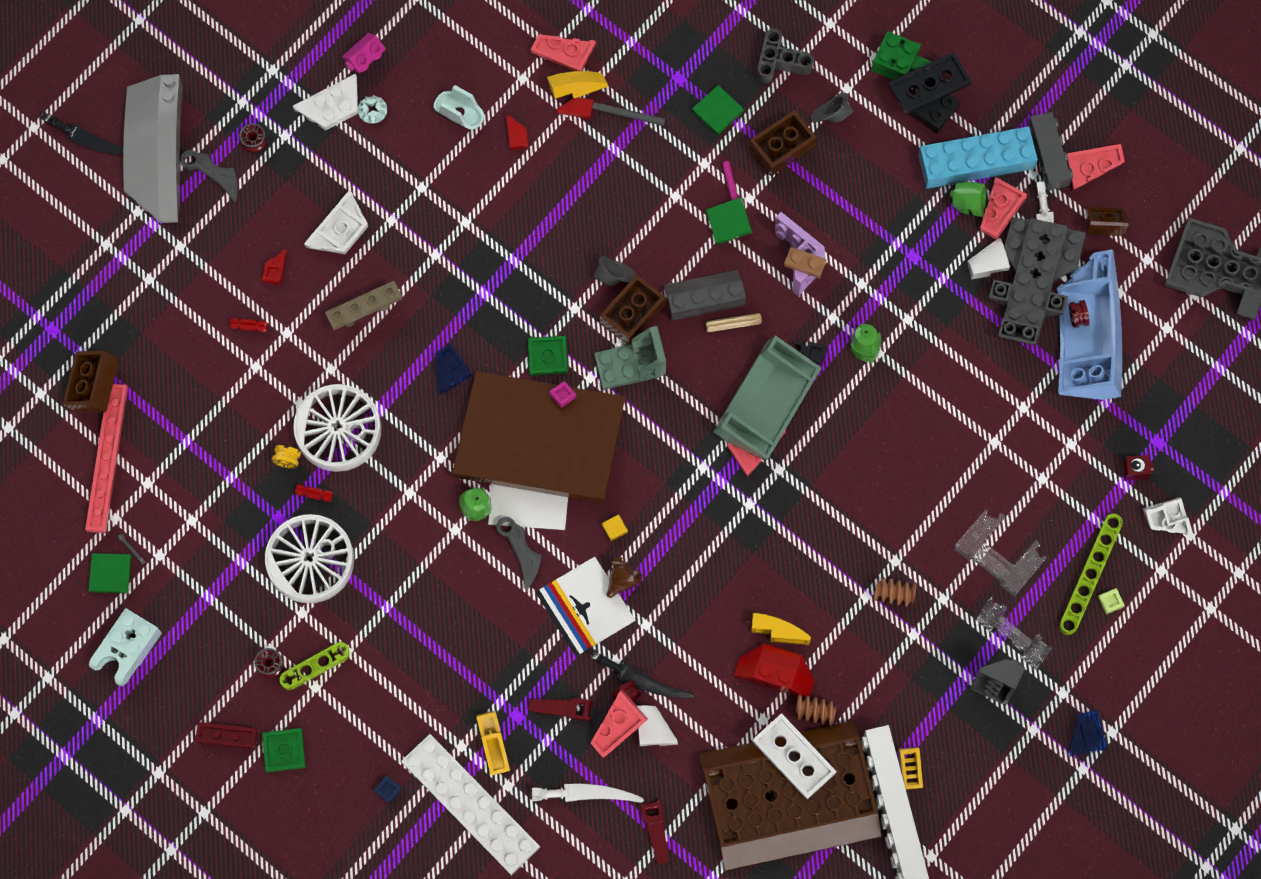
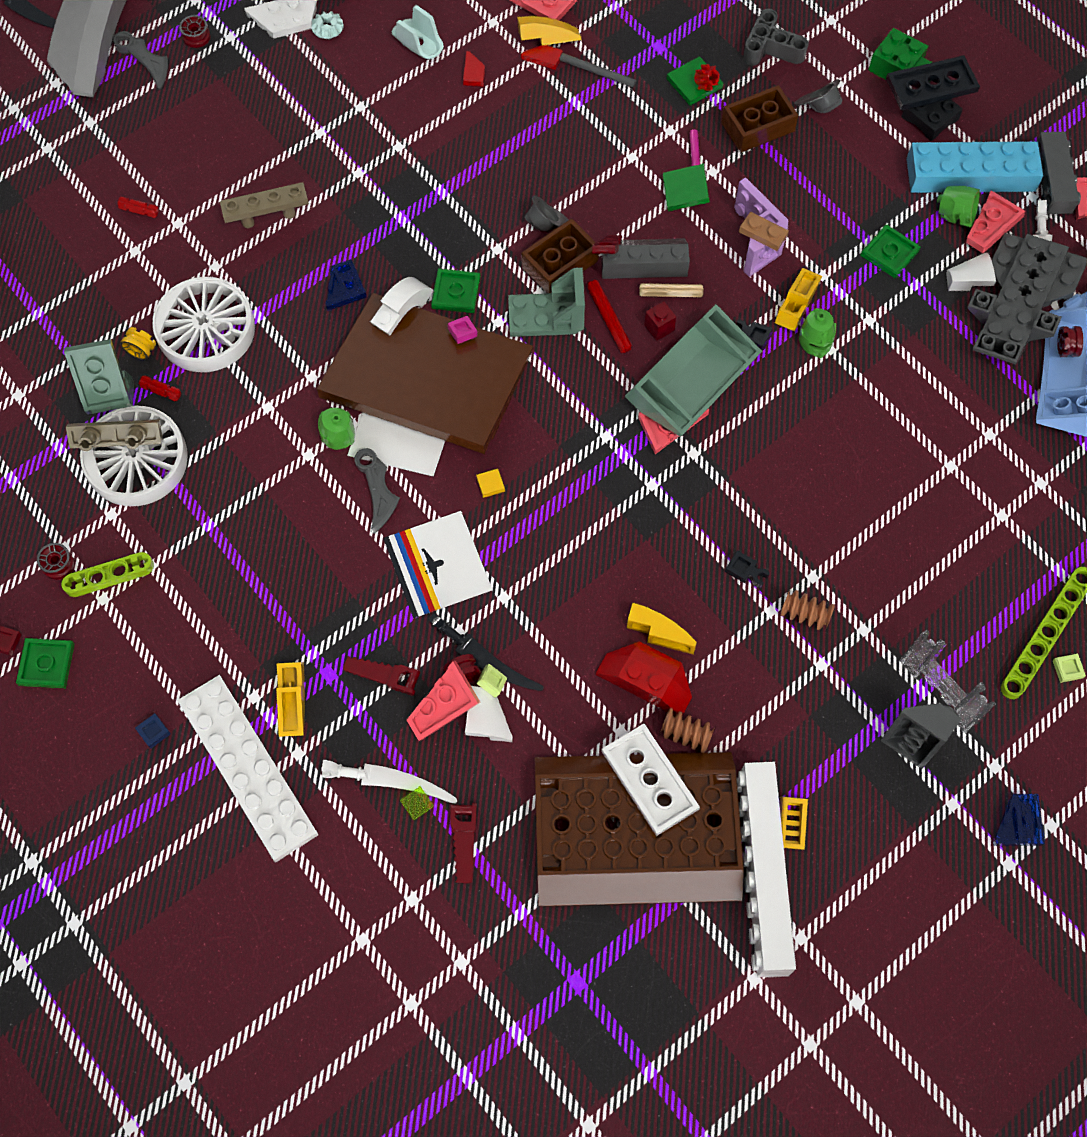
camera: 10 degrees right, 5 degrees down
(271, 500) = (99, 377): none -> sand green bracket
(274, 269) = (182, 158): red tile -> none
(307, 542) = (114, 434): none -> dark tan plate
(339, 228) = (261, 129): white wing -> none
(504, 378) = (399, 301): none -> white arch
(613, 808) = (417, 803): none -> clear neon green tile
(622, 577) = (486, 537): reddish brown hat -> none
(652, 698) = (491, 680): none -> yellowish green tile
(673, 295) = (608, 245): none -> dark red piece
(685, 356) = (609, 316): none -> red axle
(729, 110) = (706, 77): none -> red gear
(729, 355) = (660, 321): none -> dark red brick
(837, 564) = (743, 567): none -> black plate
(844, 312) = (798, 299): none -> yellow slope
(916, 250) = (890, 251): none -> green tile
(1011, 576) = (951, 618): clear wedge -> none

